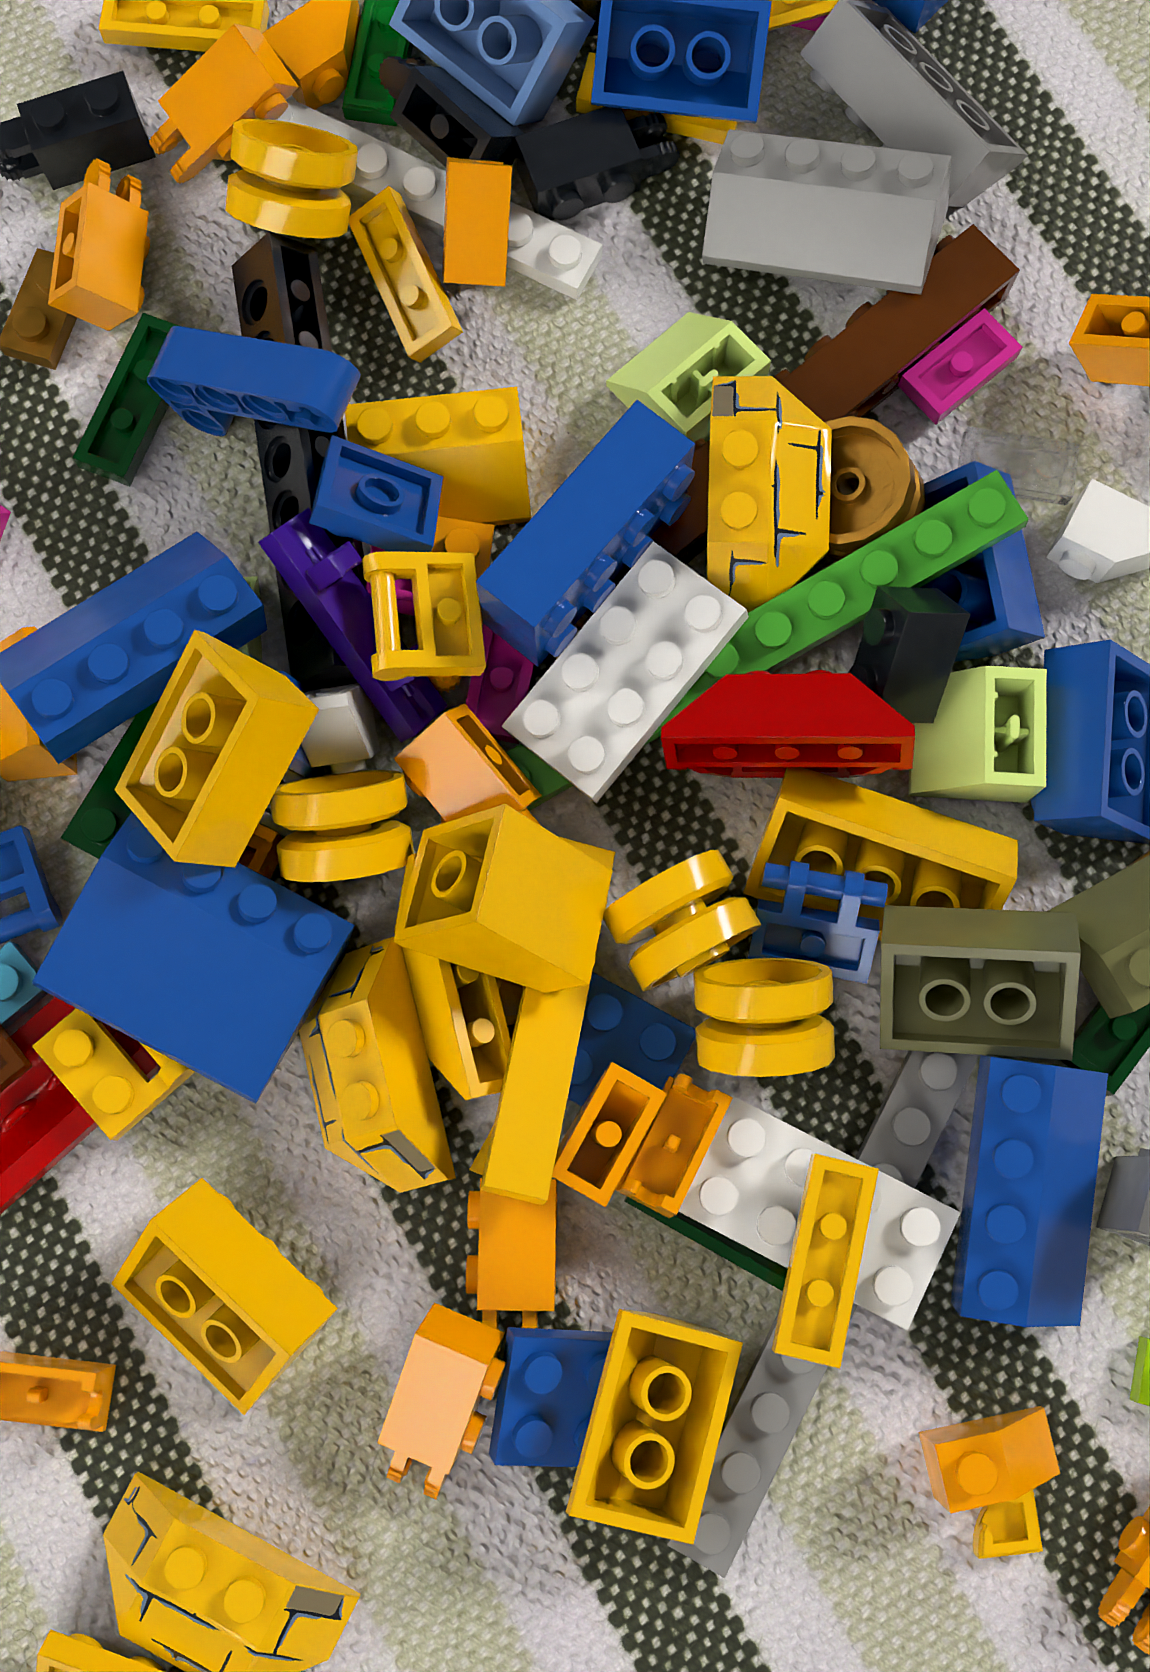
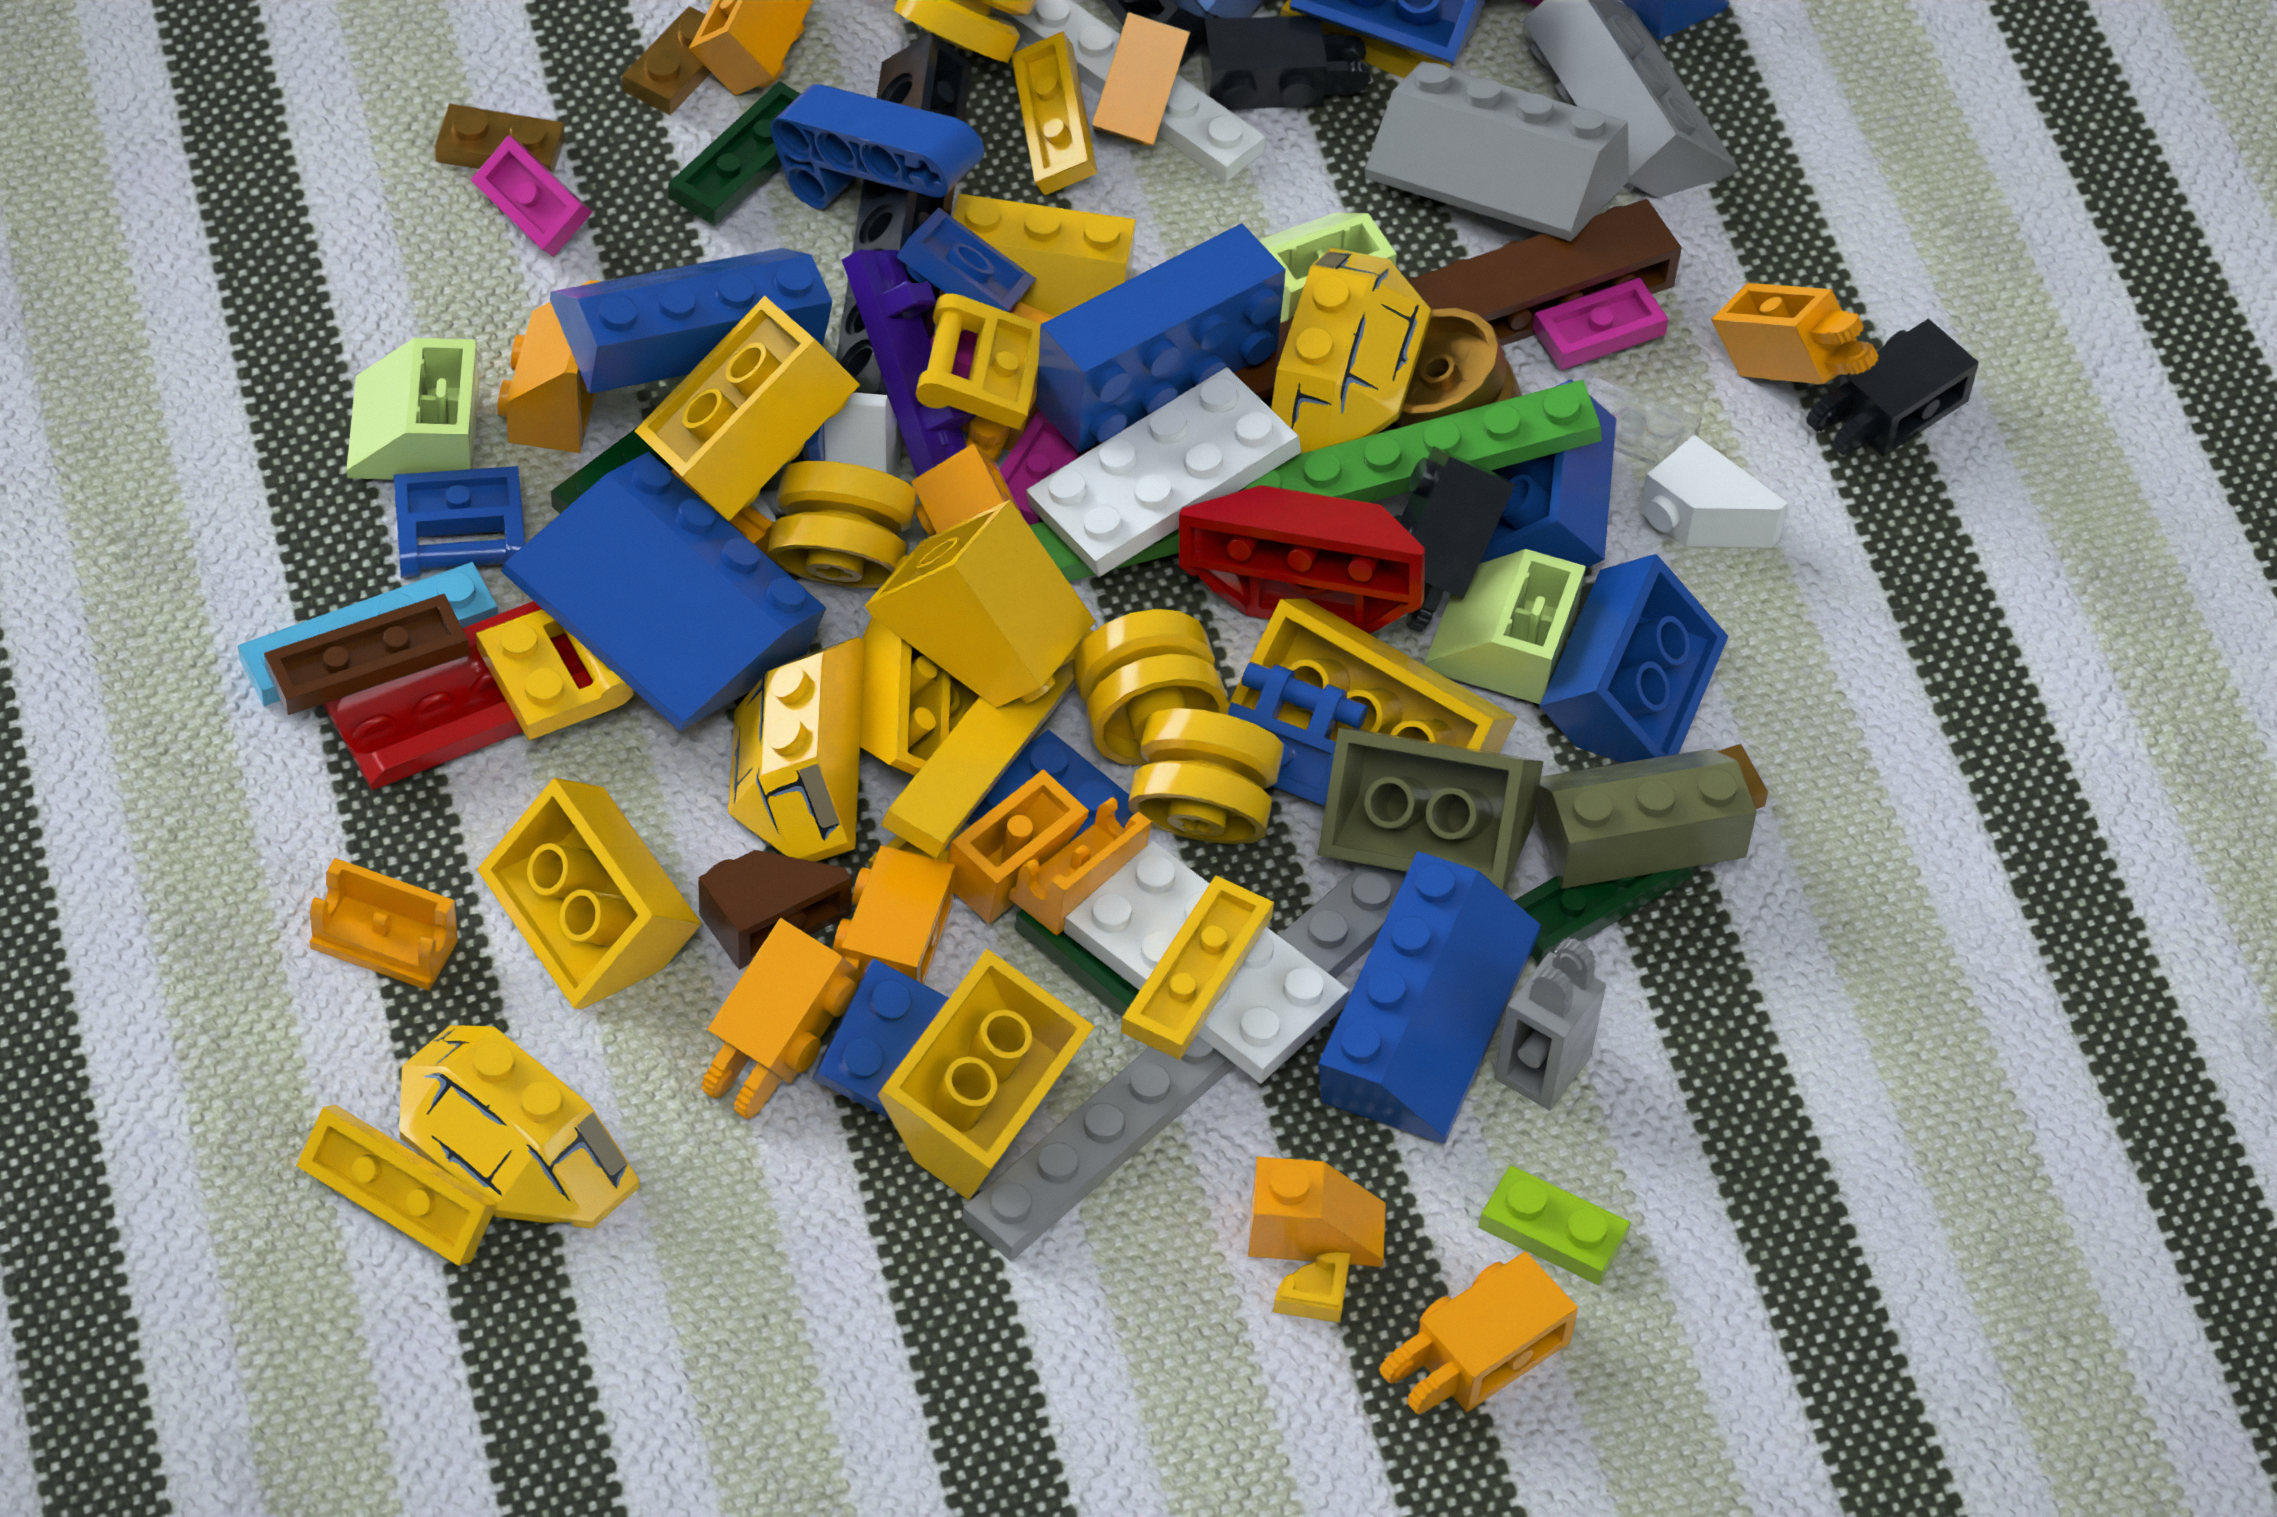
camera: 10 degrees right, 25 degrees down
(386, 1257) = (750, 894): none -> reddish brown slope

